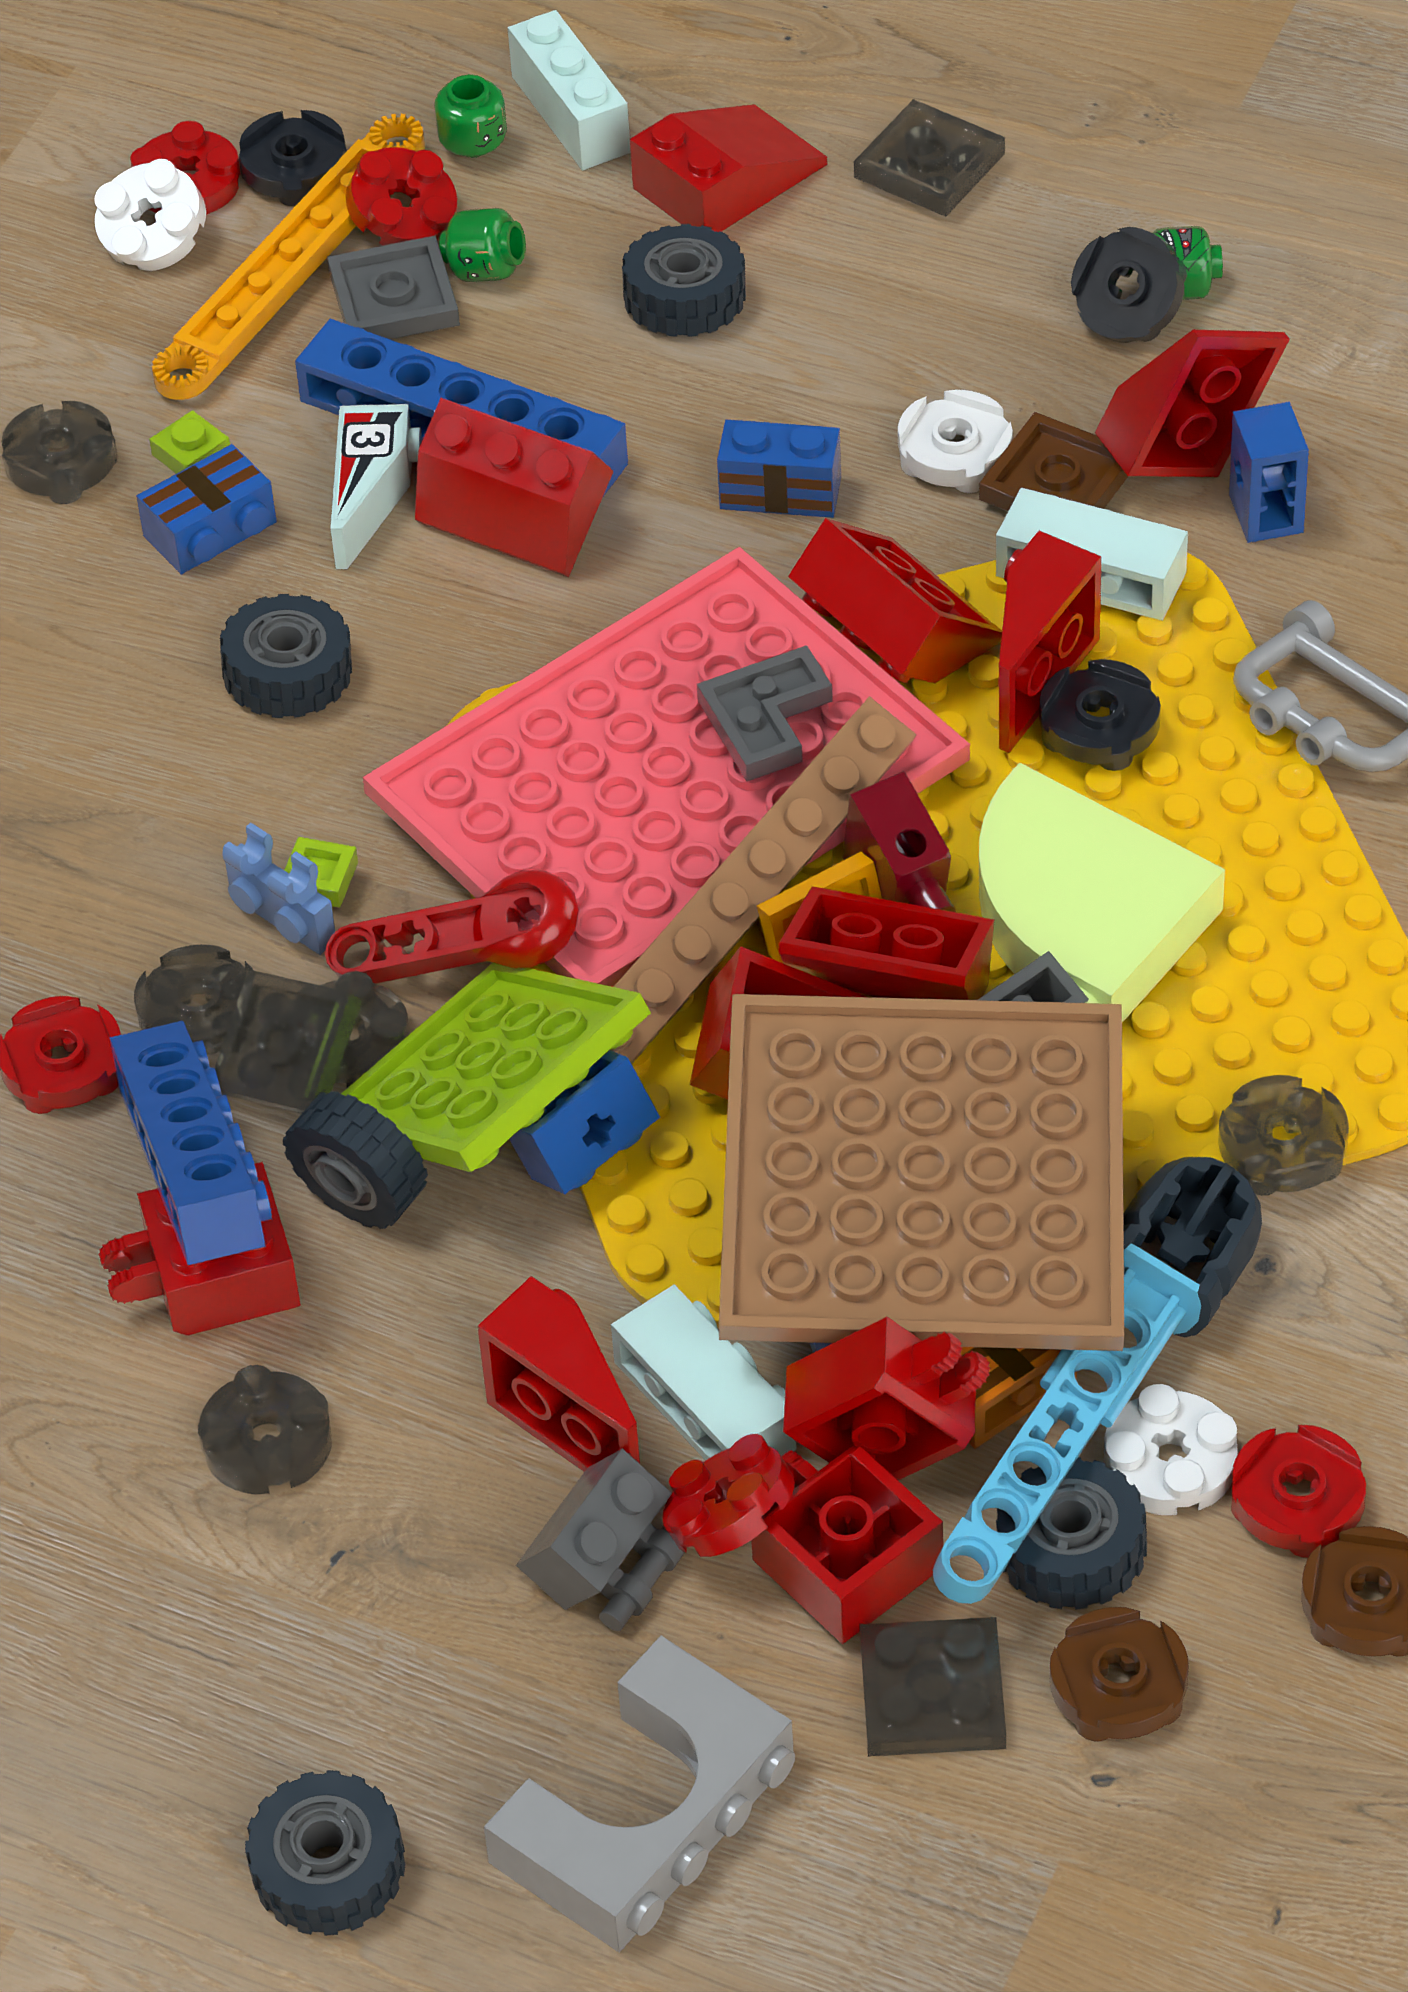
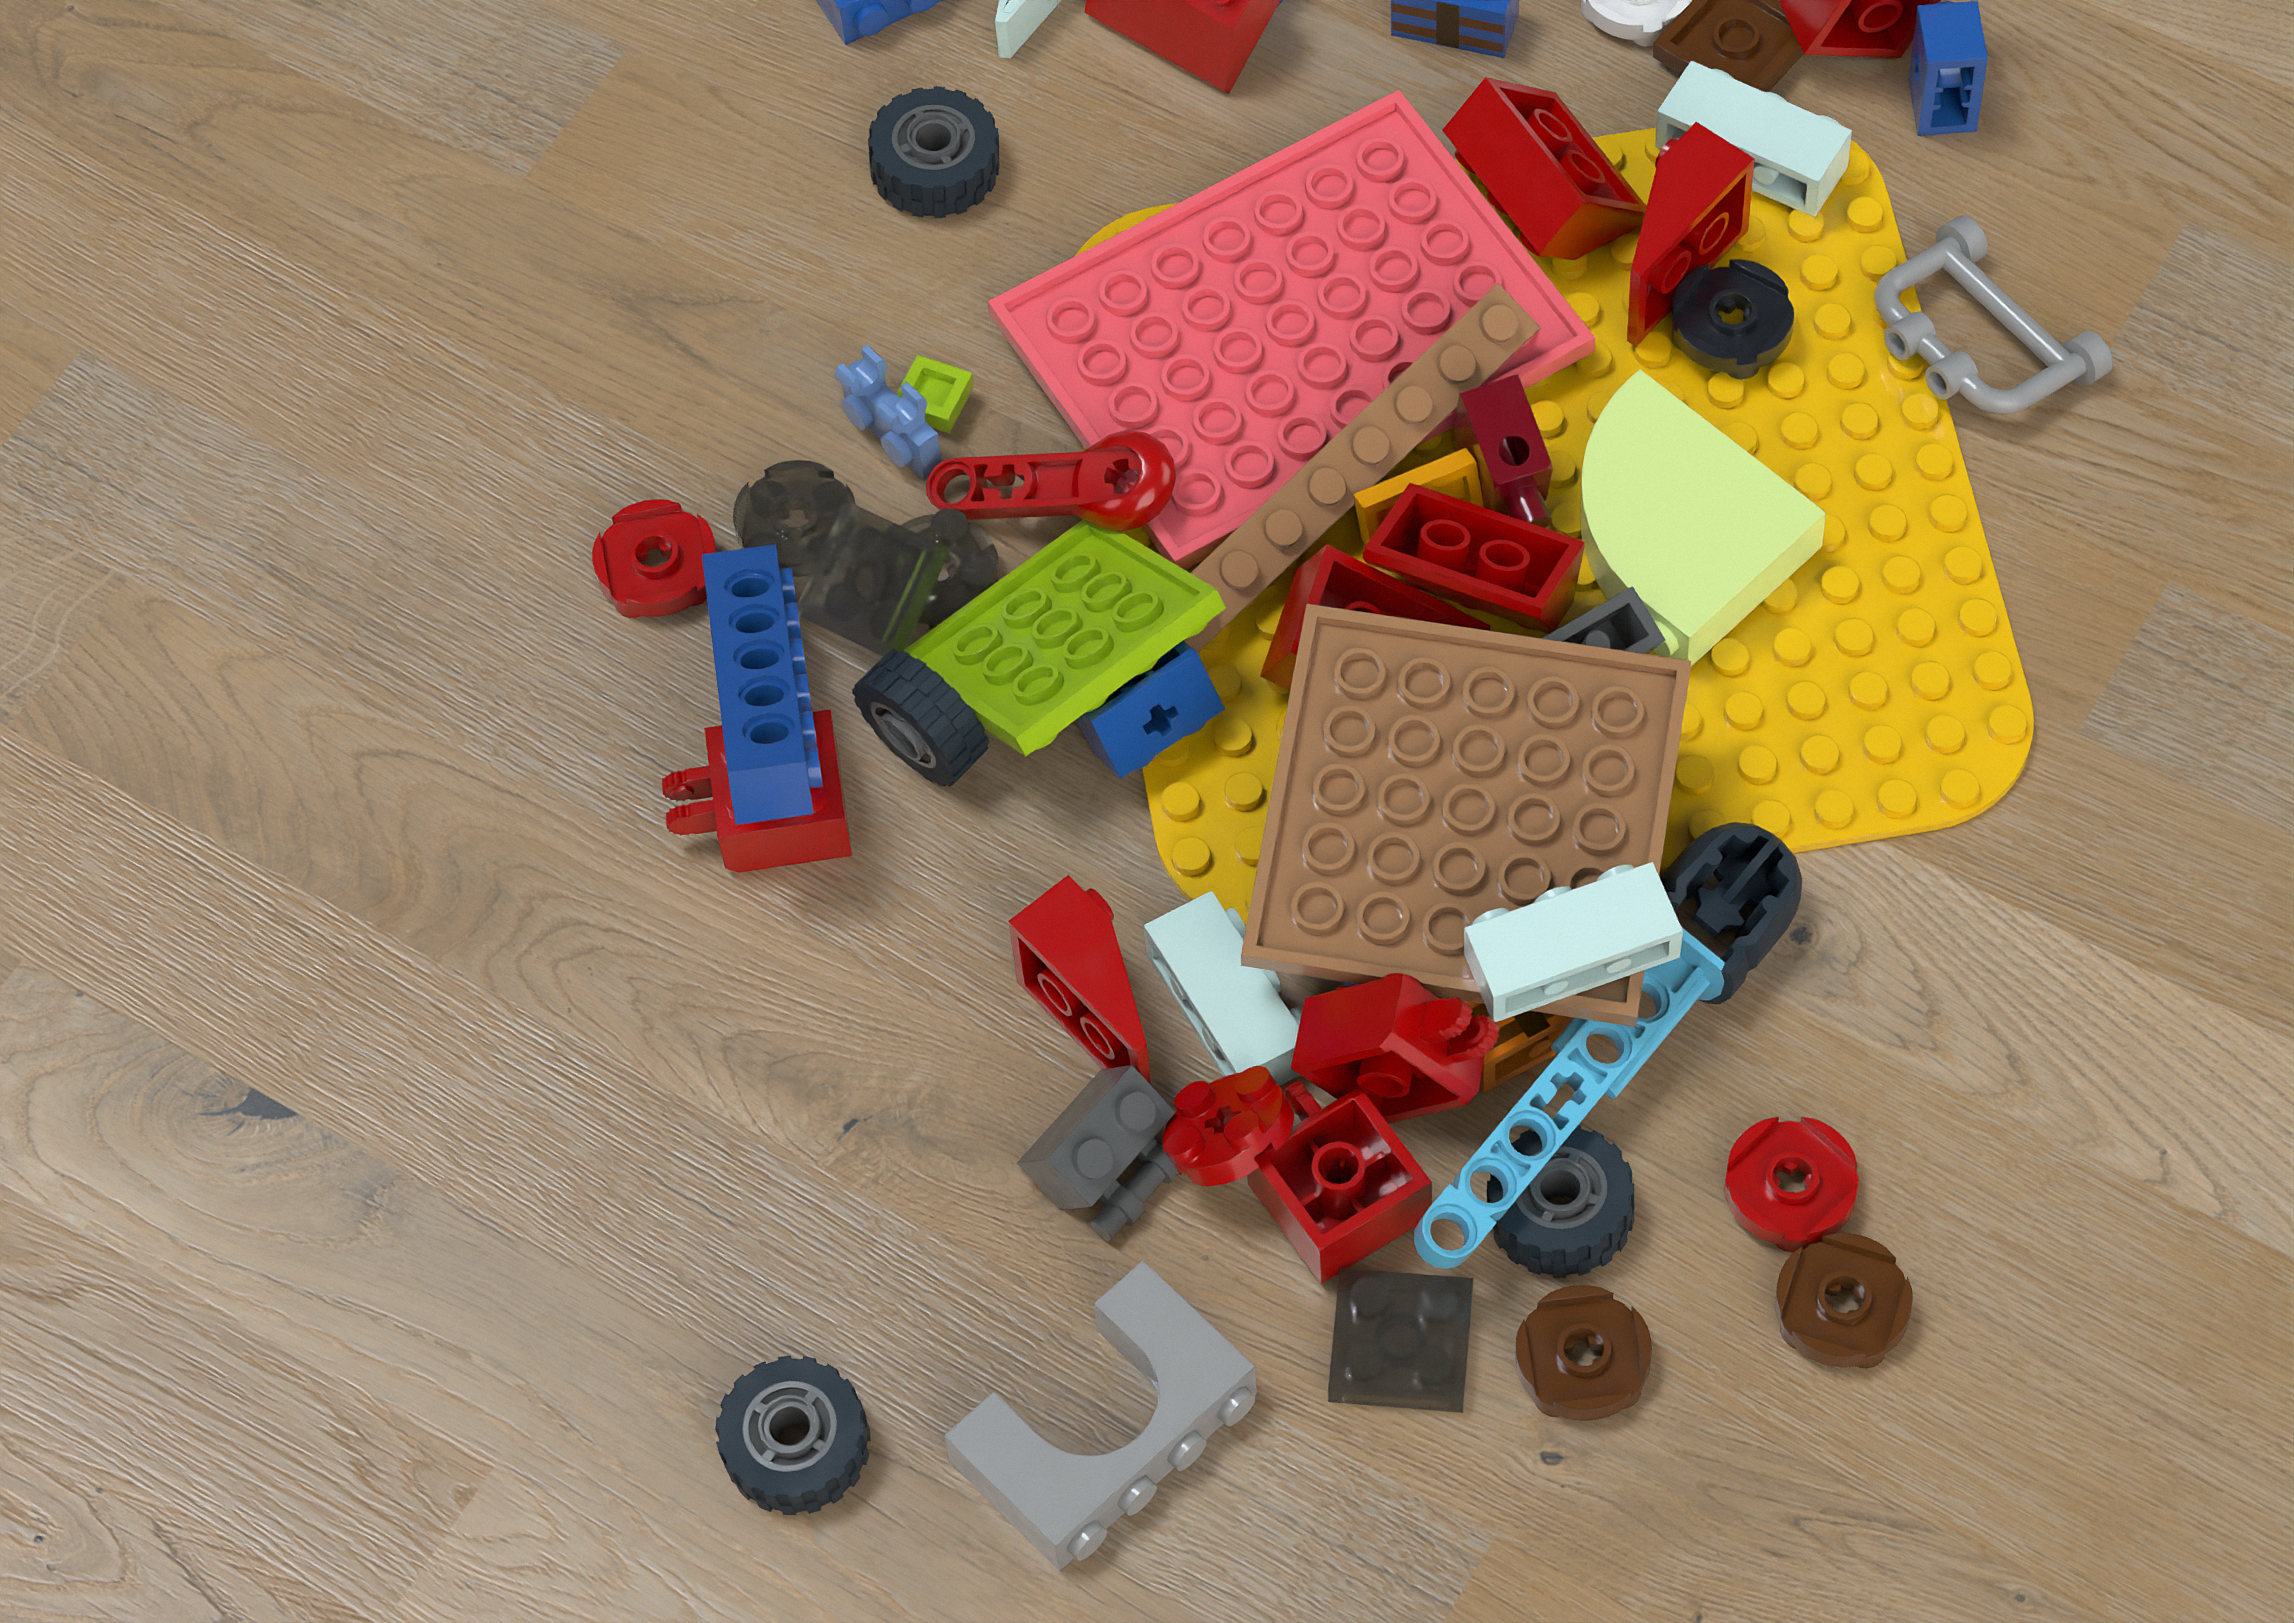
camera: 10 degrees right, 10 degrees up
(259, 1399) = (792, 952): clear smoke plate -> none
(752, 706) = (1383, 269): dark grey plate -> none
(1049, 1269) = (1572, 940): none -> light aqua brick
(1179, 1419) = (1679, 1088): white plate -> none
(1276, 1164) = (1838, 837): clear smoke plate -> none

